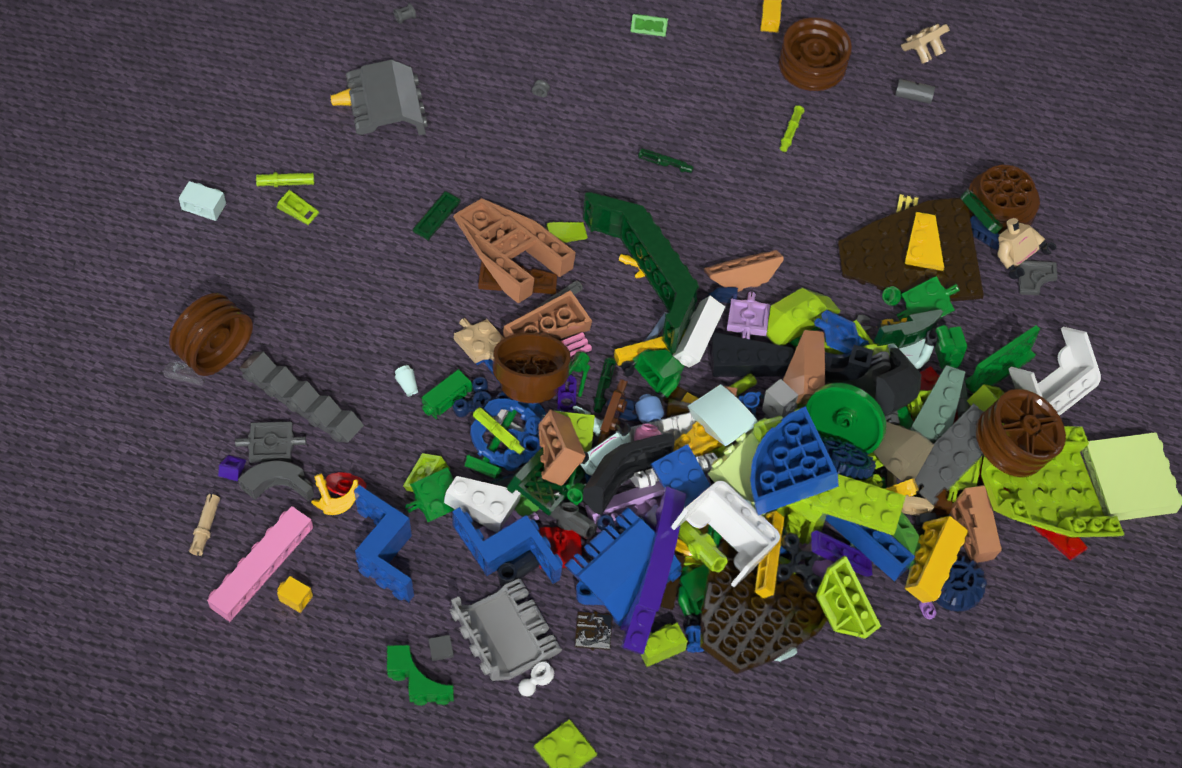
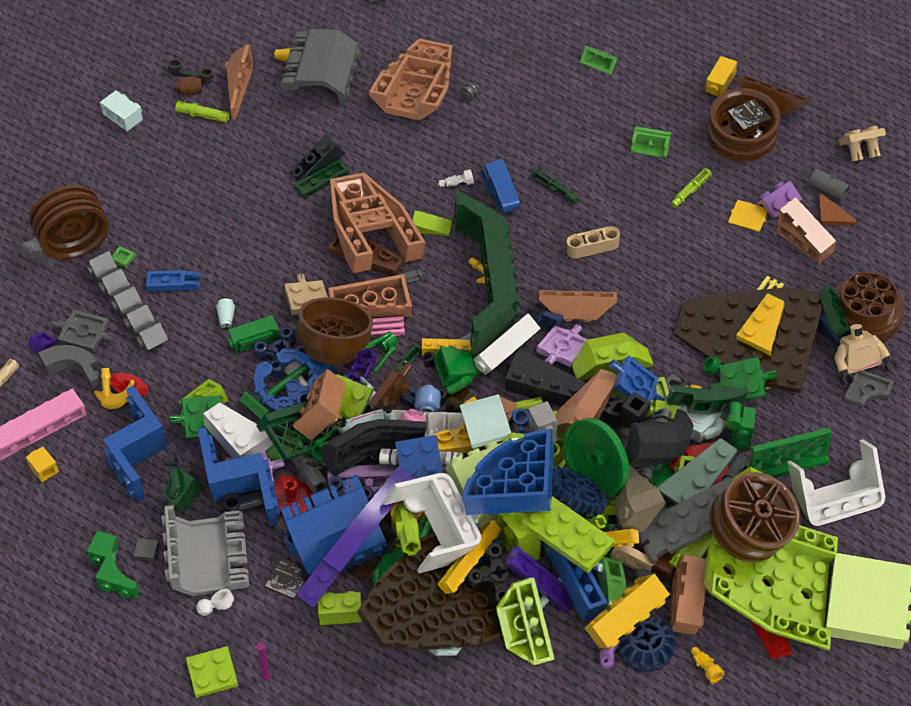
camera: 25 degrees right, 5 degrees down
(258, 155) = (188, 85): none -> reddish brown brick
(270, 141) = (176, 69): none -> pearl dark grey bar
(274, 352) = (123, 257): none -> bright green tile
(296, 207) = (201, 138): lime slope -> none
(304, 134) = (238, 72): none -> nougat wedge
(336, 363) = (172, 280): none -> blue hinge
(424, 198) = (321, 155): none -> black slope
(453, 575) = (182, 487): none -> dark green torso
(487, 91) = (415, 82): none -> nougat wedge
(495, 428) = (279, 376): lime piece -> none
(578, 175) = (455, 180): none -> white piece
(614, 169) = (500, 185): none -> blue beam
(620, 724) = (263, 661): none -> magenta bar
(728, 207) = (593, 242): none -> tan beam
(735, 93) = (651, 142): none -> bright green hinge
(820, 44) = (748, 115): none -> piece
(844, 19) = (785, 100): none -> reddish brown wedge
(854, 140) = (748, 215): none -> yellow piece
(876, 117) = (778, 198): none -> medium lavender bracket
(916, 142) = (804, 231): none -> wedge
(929, 118) = (832, 214): none -> dark orange tile
(1028, 590) = (713, 672): none -> yellow piece

